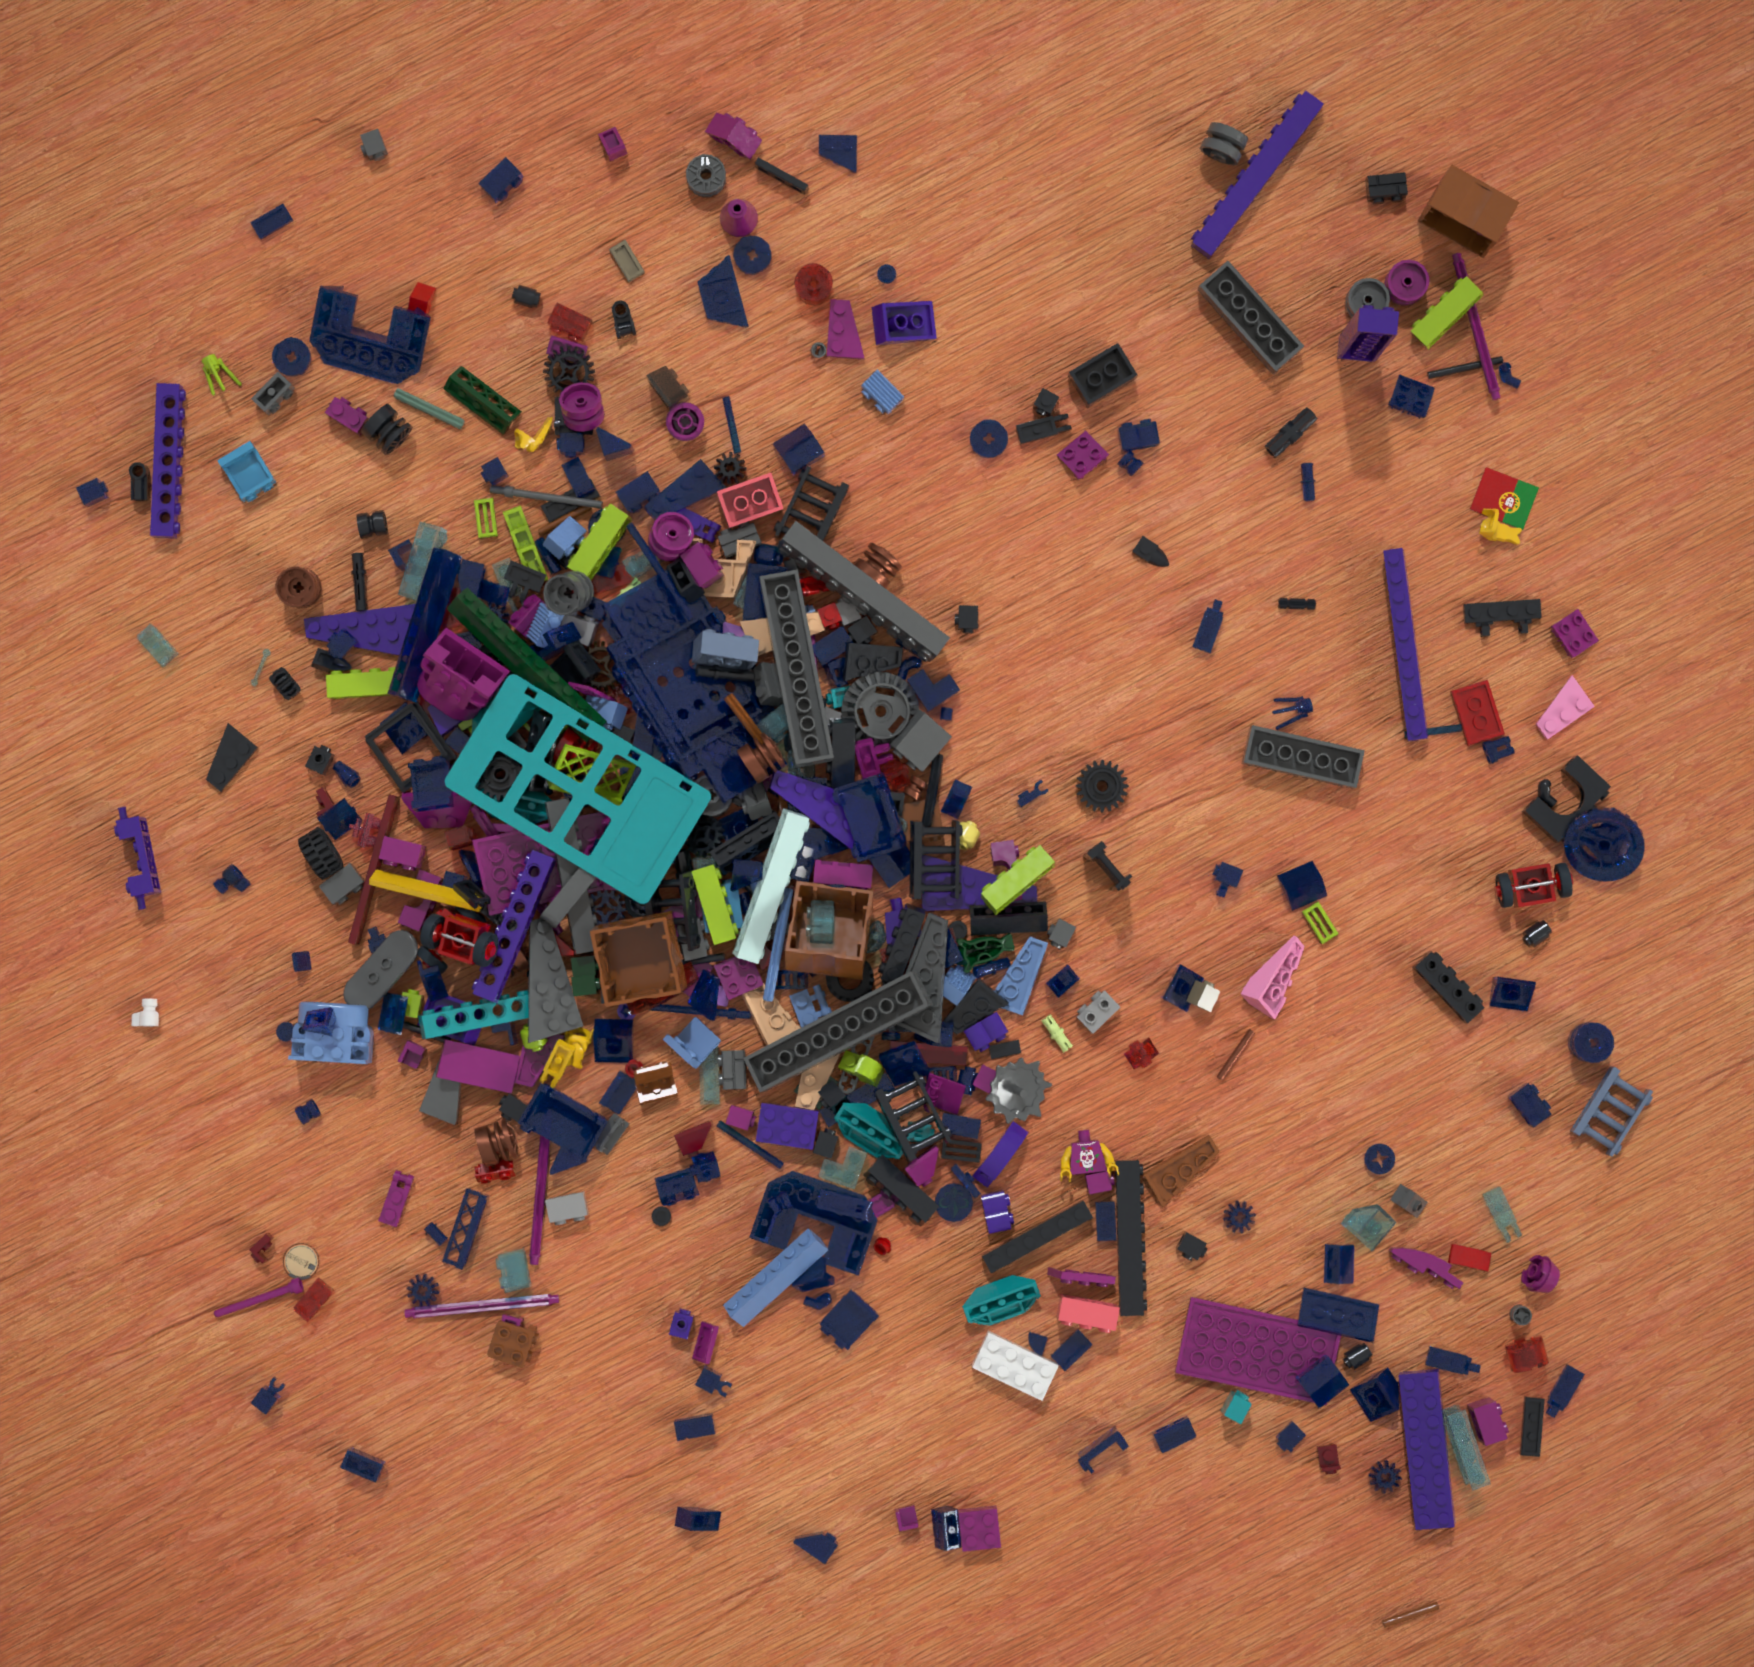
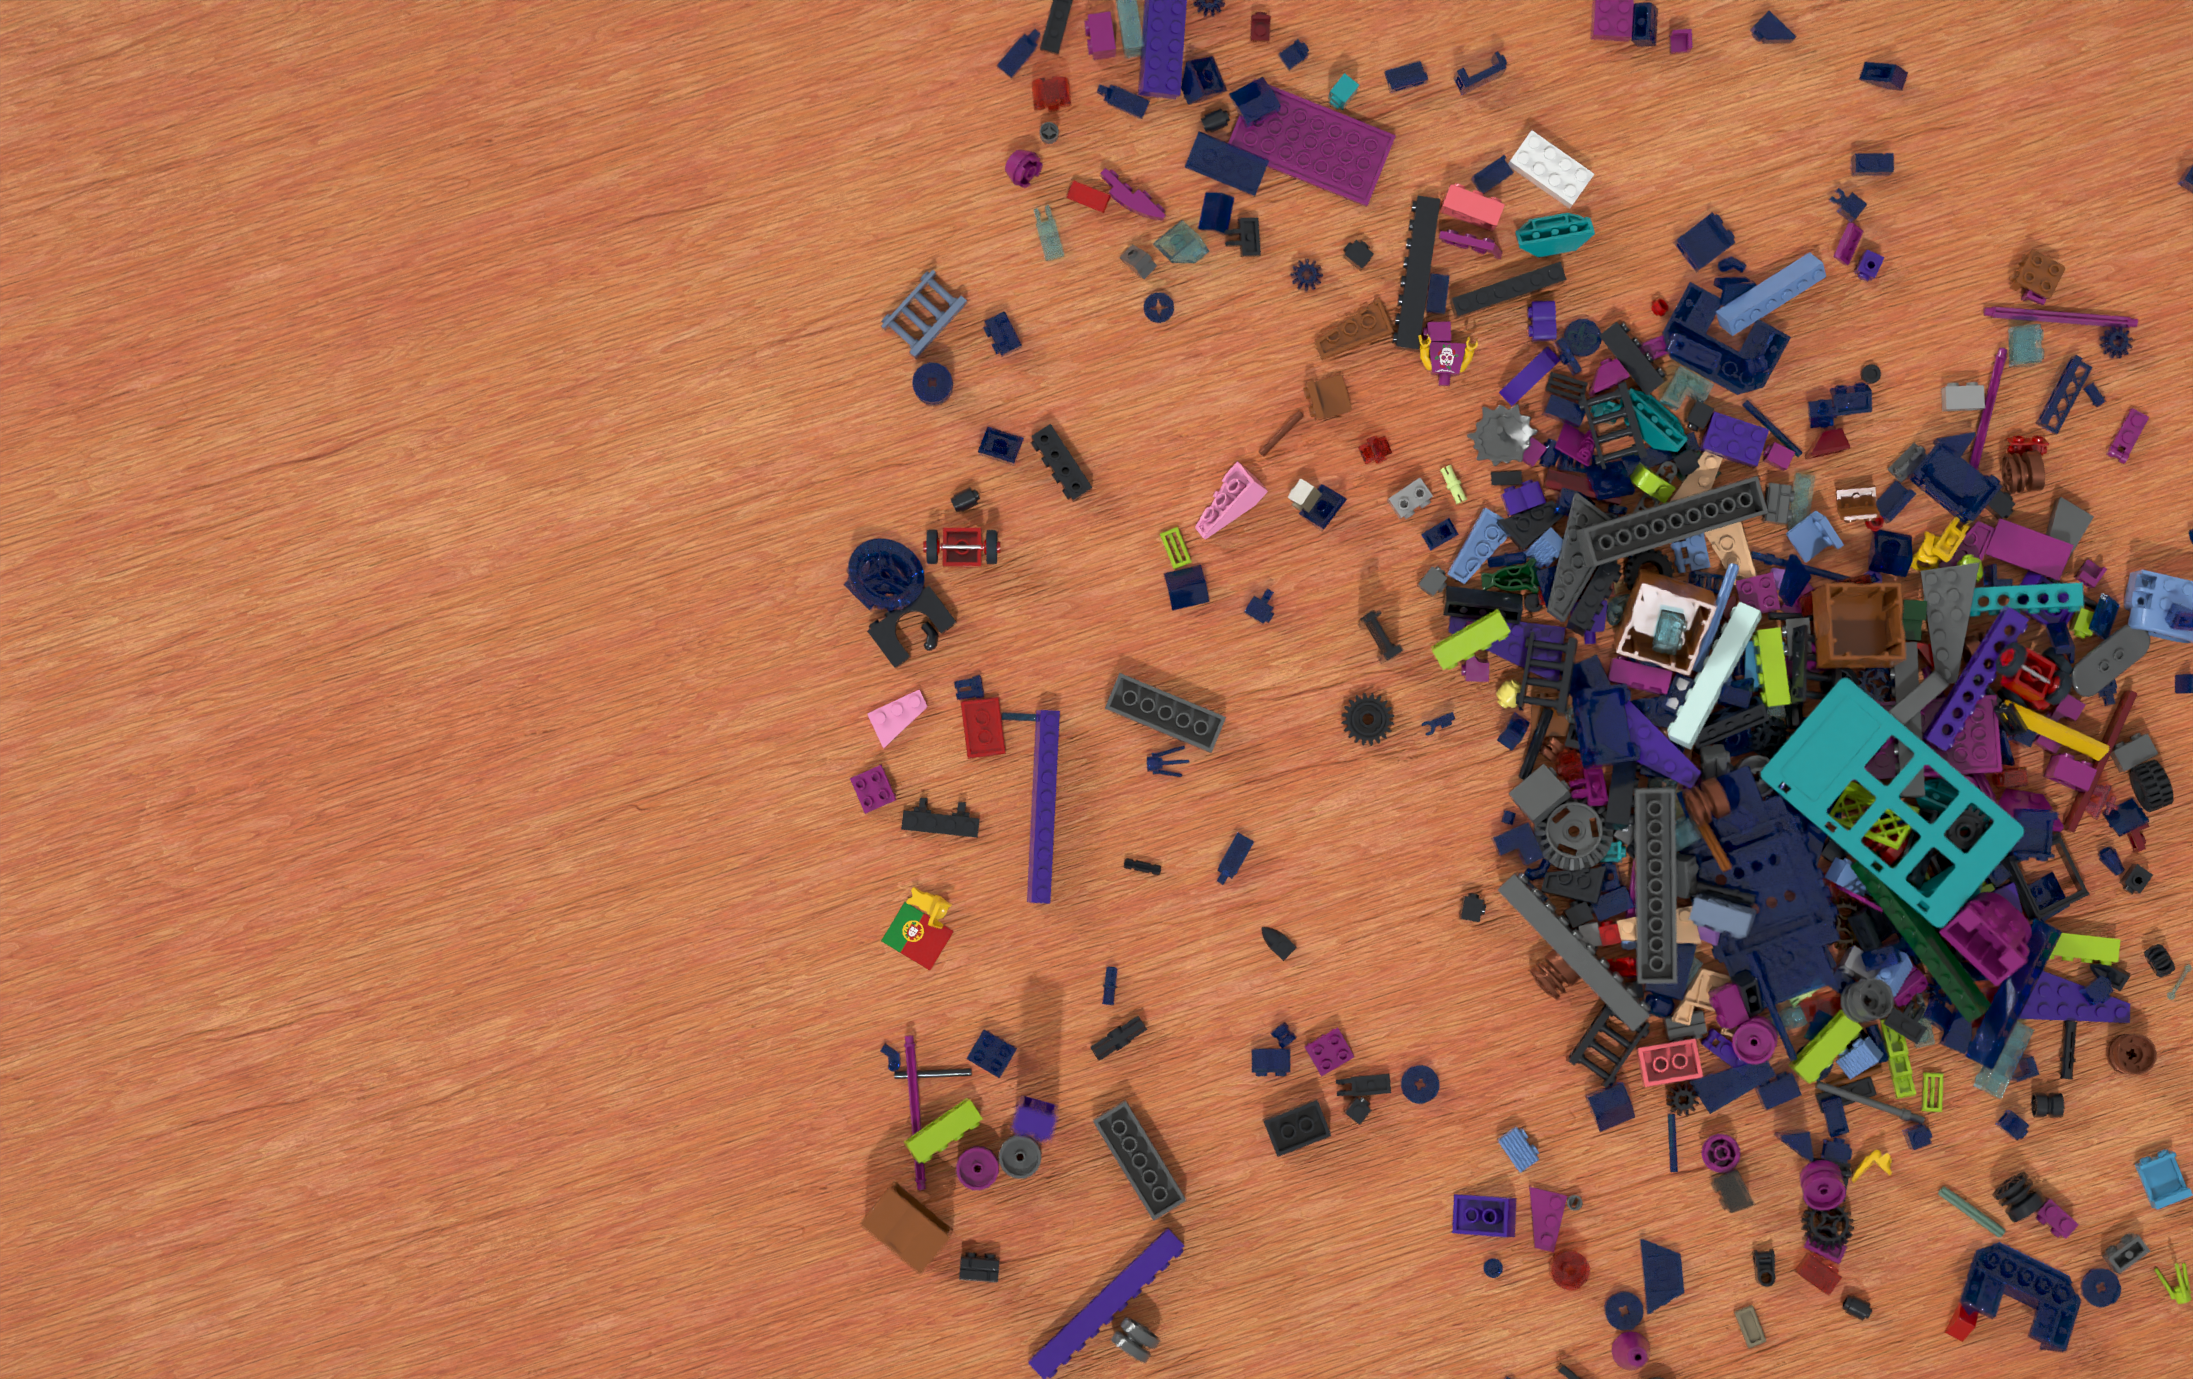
camera: 170 degrees left, 0 degrees up
(402, 498) = (2012, 1125): none -> clear blue brick
(479, 401) = (1921, 1210): dark green fence -> none
(1037, 1342) = (1523, 188): clear blue tile -> none
(1197, 1097) = (1327, 397): none -> dark orange bracket
(1303, 1245) = (1248, 237): none -> black hinge

